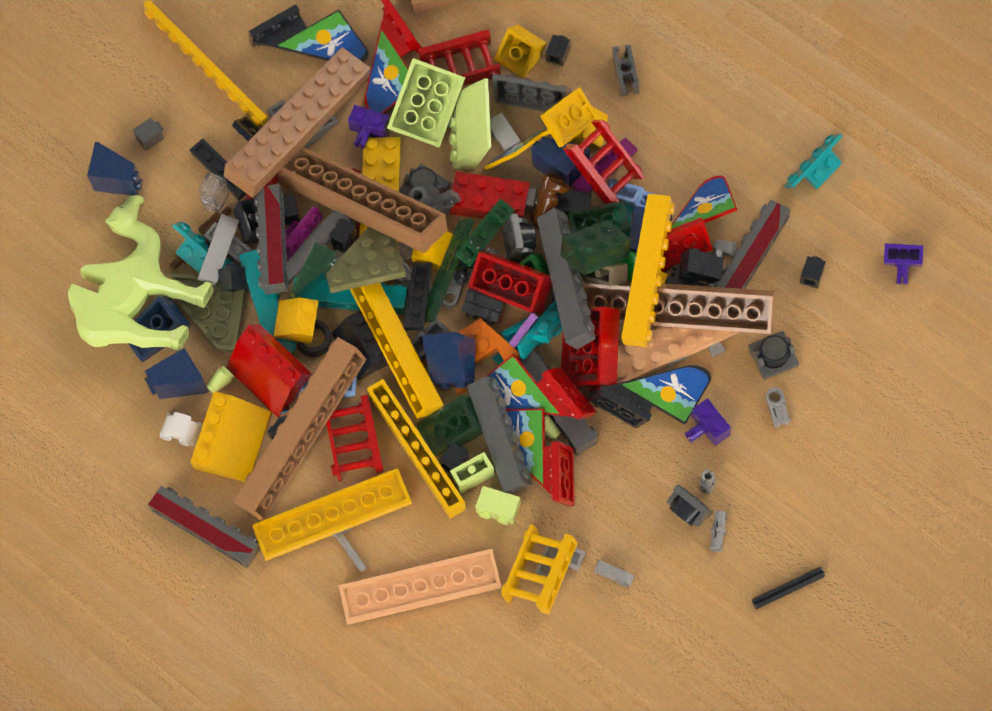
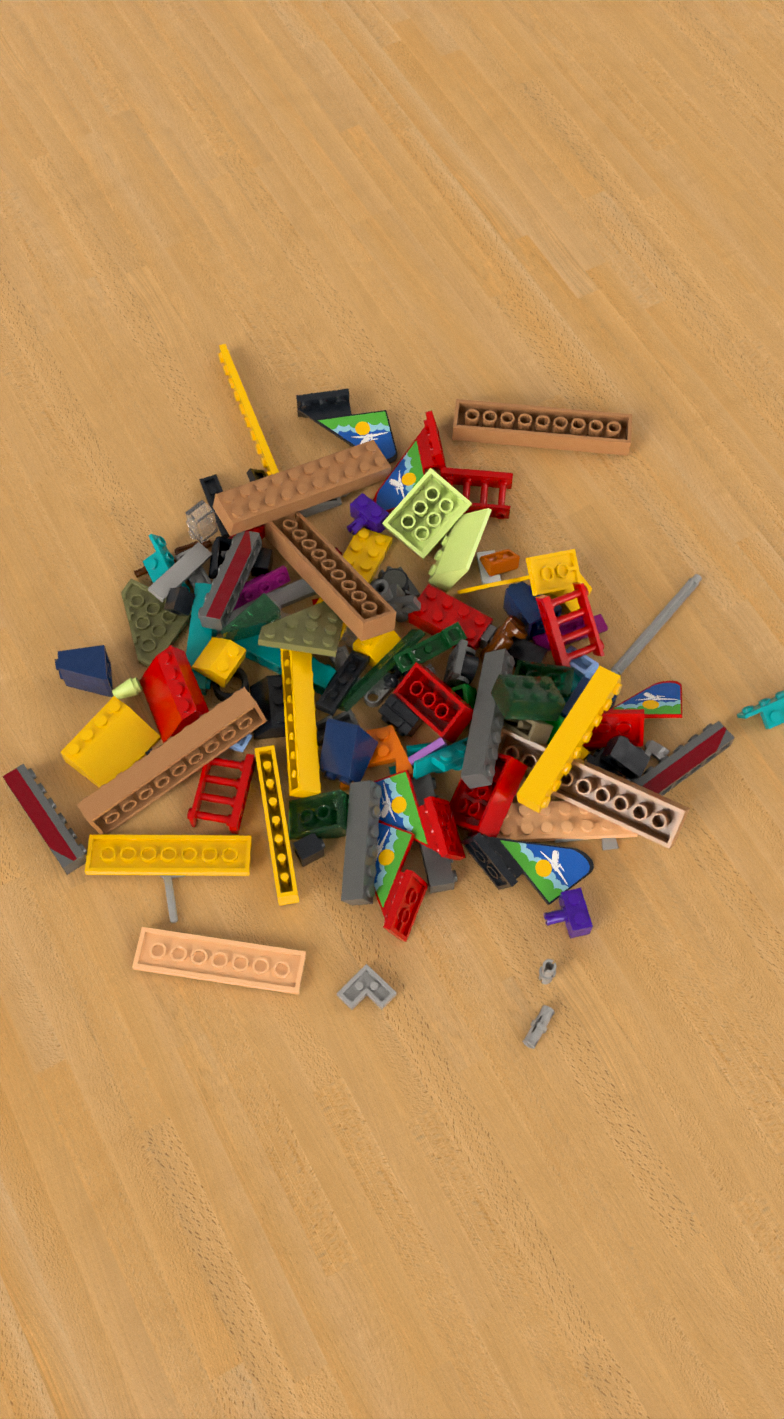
camera: 15 degrees right, 5 degrees down
(112, 172) = (121, 472): dark blue slope -> none
(125, 287) = (80, 573): yellowish green animal -> none
(149, 133) = (171, 453): dark grey brick -> none
(161, 316) = (93, 620): dark blue slope -> none
(181, 428) = (69, 718): white cylinder -> none
(343, 235) = (298, 599): black brick -> none
(472, 473) = (319, 869): yellowish green brick -> none
(497, 505) = (330, 911): yellowish green brick -> none
(512, 122) = (500, 562): none -> orange slope
(519, 50) = (534, 502): yellow slope -> none
(527, 93) = (522, 537): dark grey slope -> none
(551, 429) = (414, 856): yellowish green cone -> none
(551, 582) = (350, 1009): yellow fence -> none
(558, 50) = (569, 514): black brick -> none
(614, 573) = (415, 1027): light grey piece -> none
(625, 64) = (623, 560): dark grey piece -> none
(680, 129) = (656, 625): none -> light grey piece
(688, 506) = (518, 989): piece -> none
(773, 352) = (664, 869): piece -> none
(777, 409) = (647, 927): light grey piece -> none
(788, 587) = (587, 1116): black axle -> none
(812, 271) = (734, 805): black brick -> none

